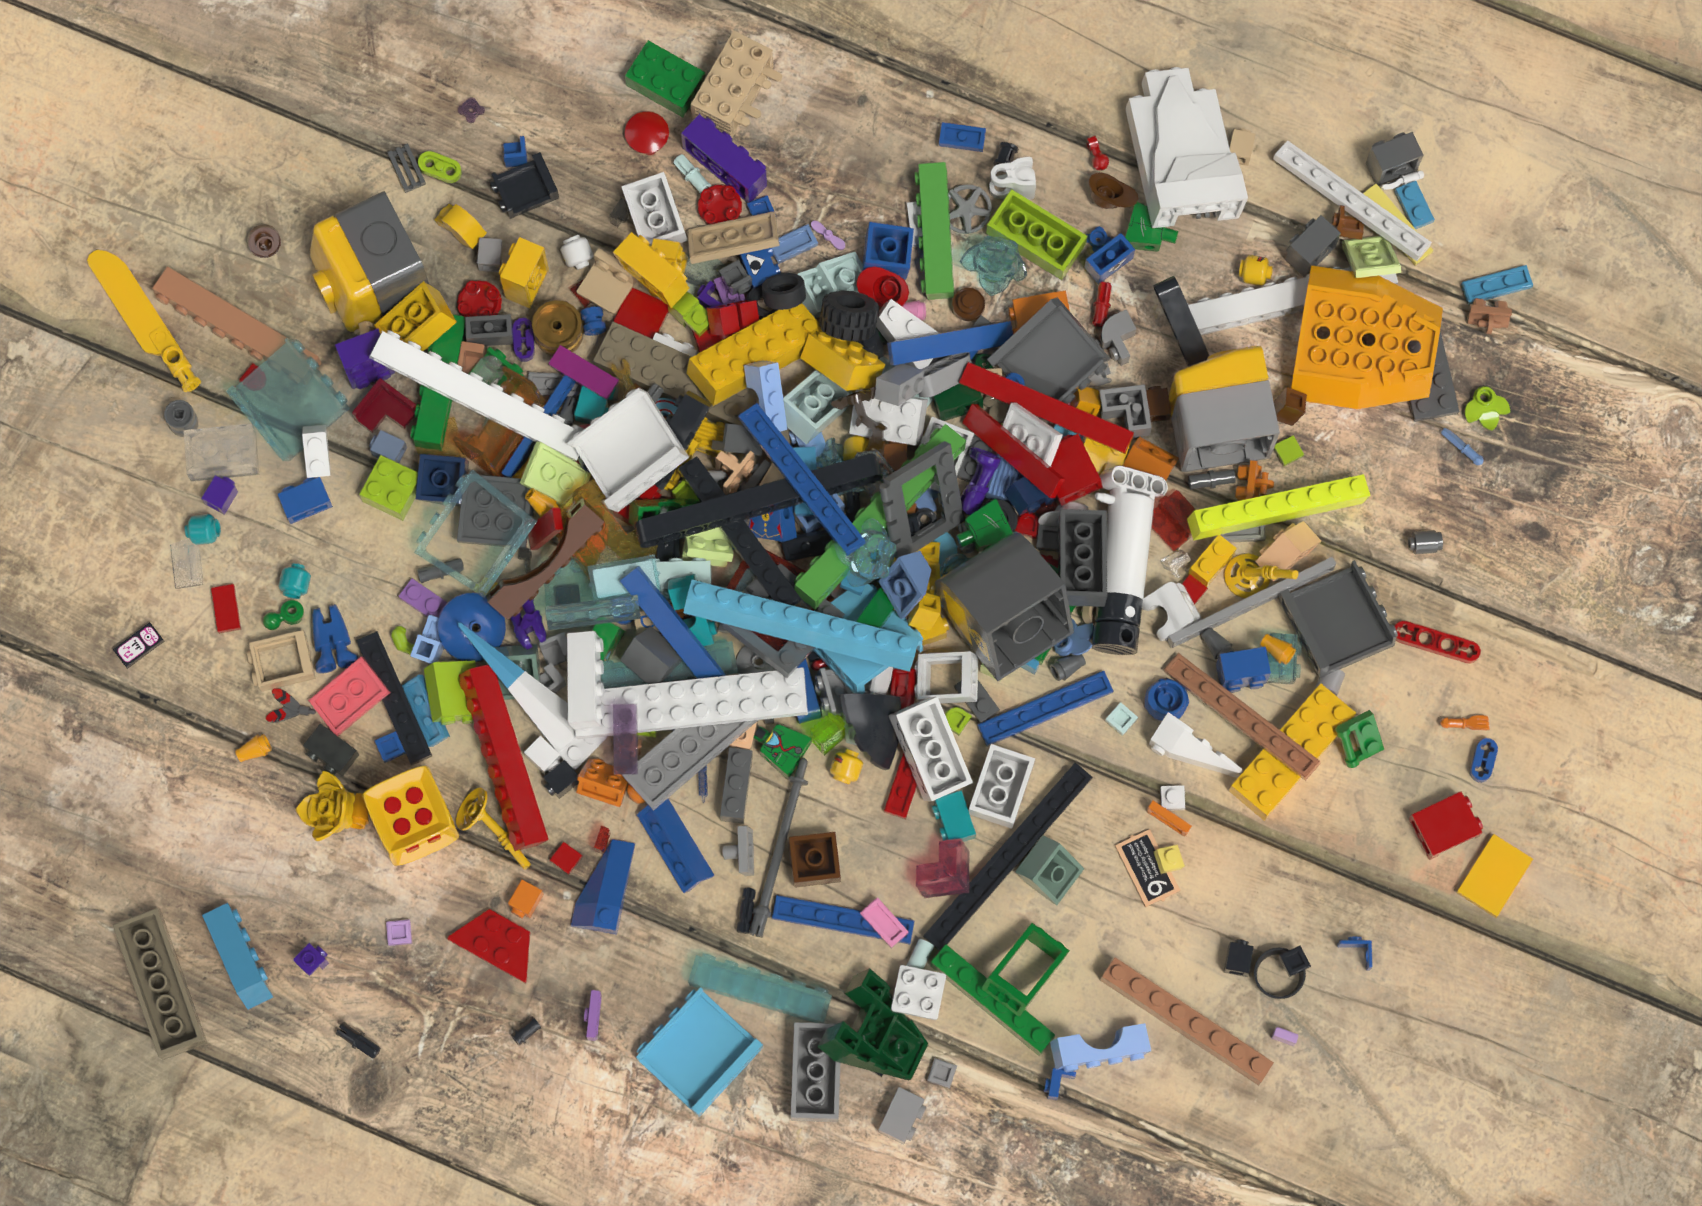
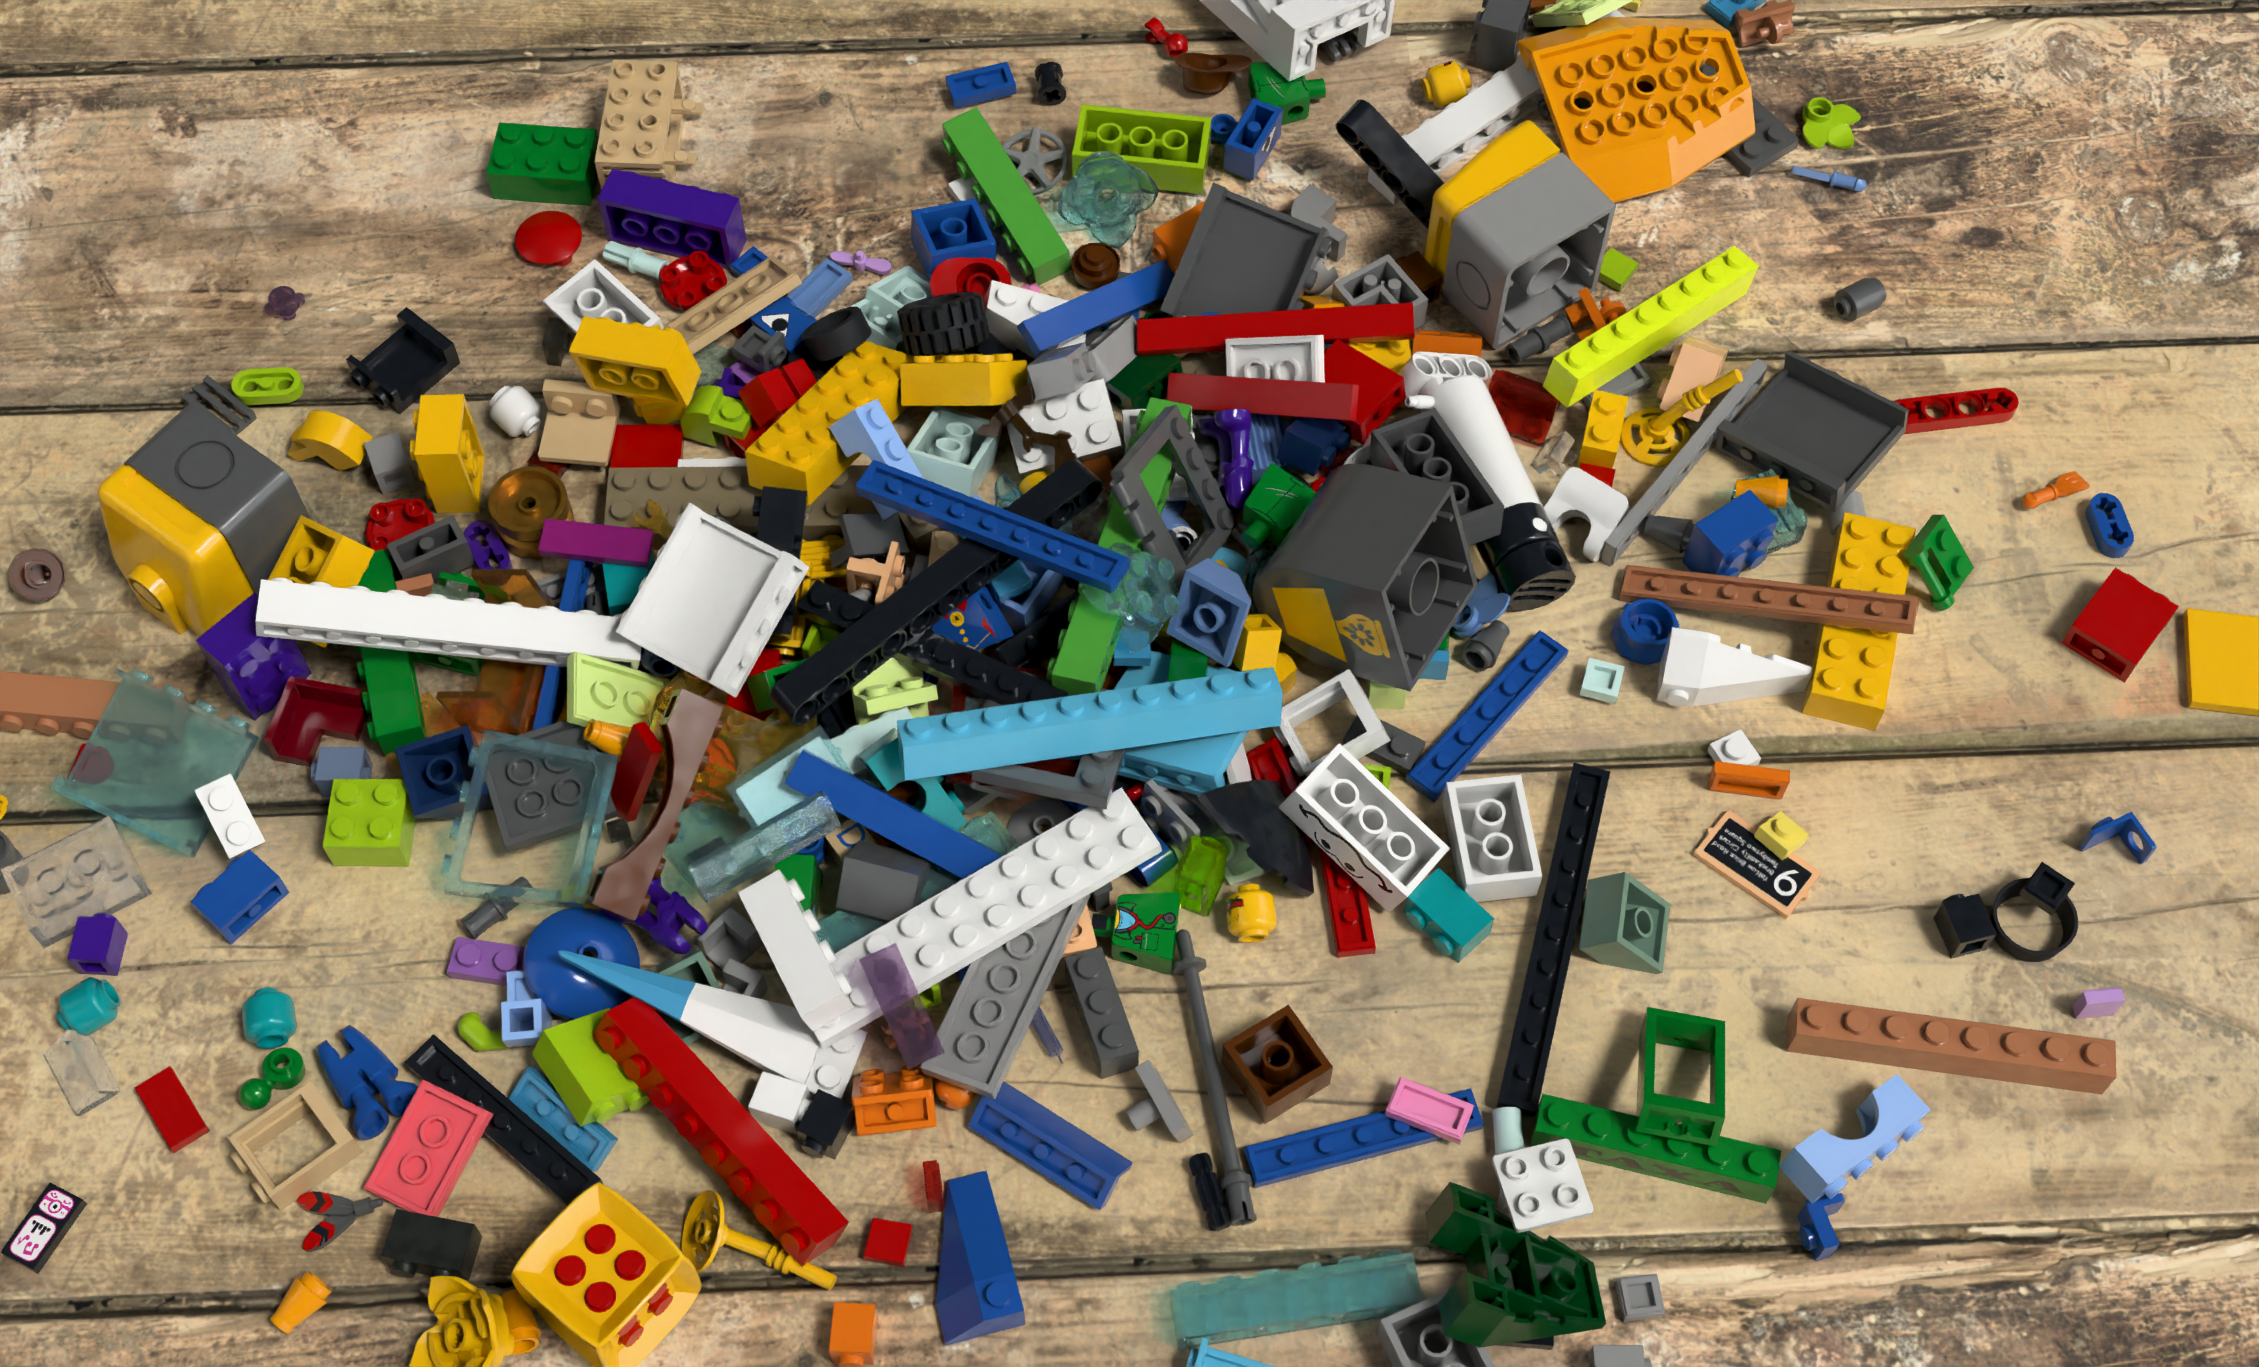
camera: 25 degrees left, 15 degrees down
(390, 747) = (527, 1199): blue plate -> none
(515, 153) = (373, 328): blue panel -> none
(593, 321) = (582, 489): blue wheel -> none
(948, 875) = (1485, 996): clear pink brick -> none
(1018, 177) = (1081, 87): white piece -> none
(1102, 304) = (1271, 194): red axle -> none

